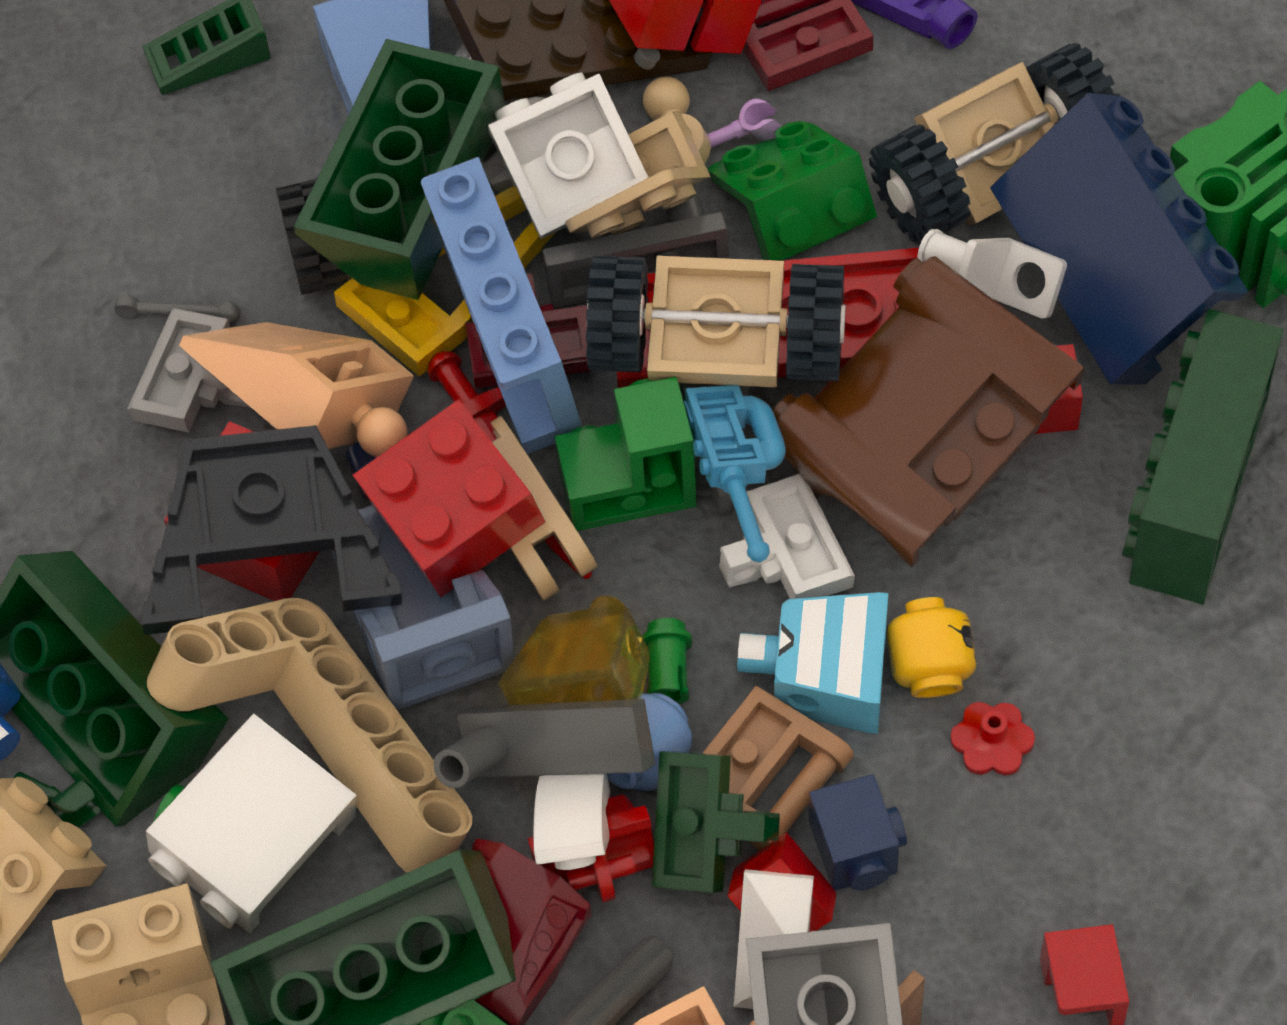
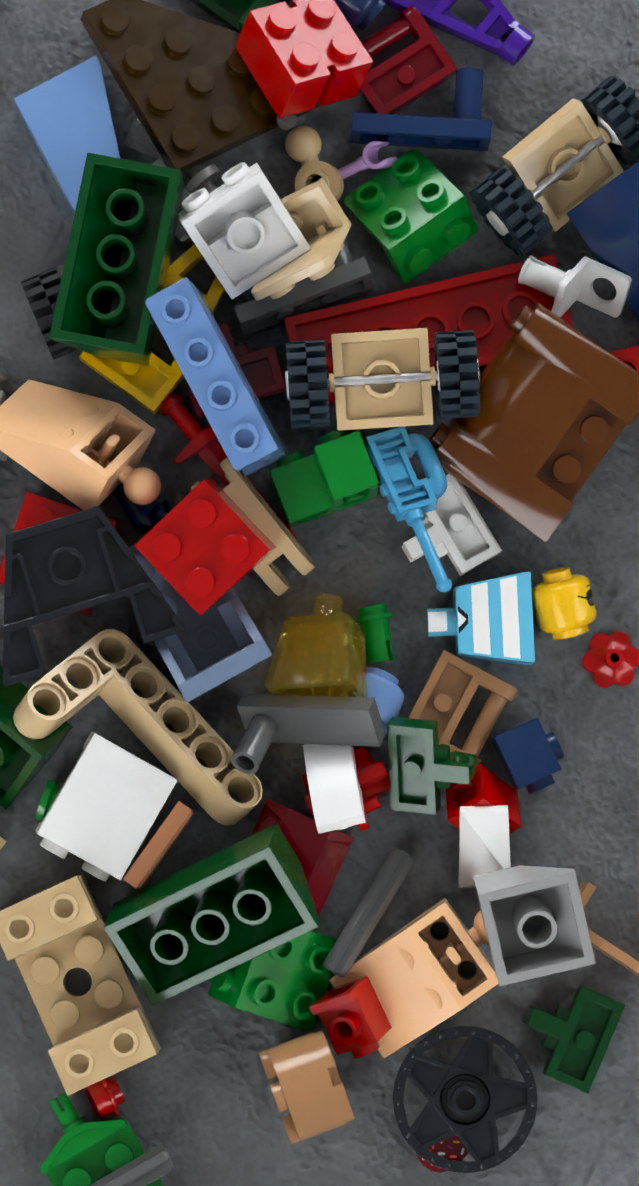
camera: 15 degrees left, 25 degrees up
(319, 882) = (159, 845): none -> nougat tile
(829, 99) = (462, 132): none -> dark blue piece

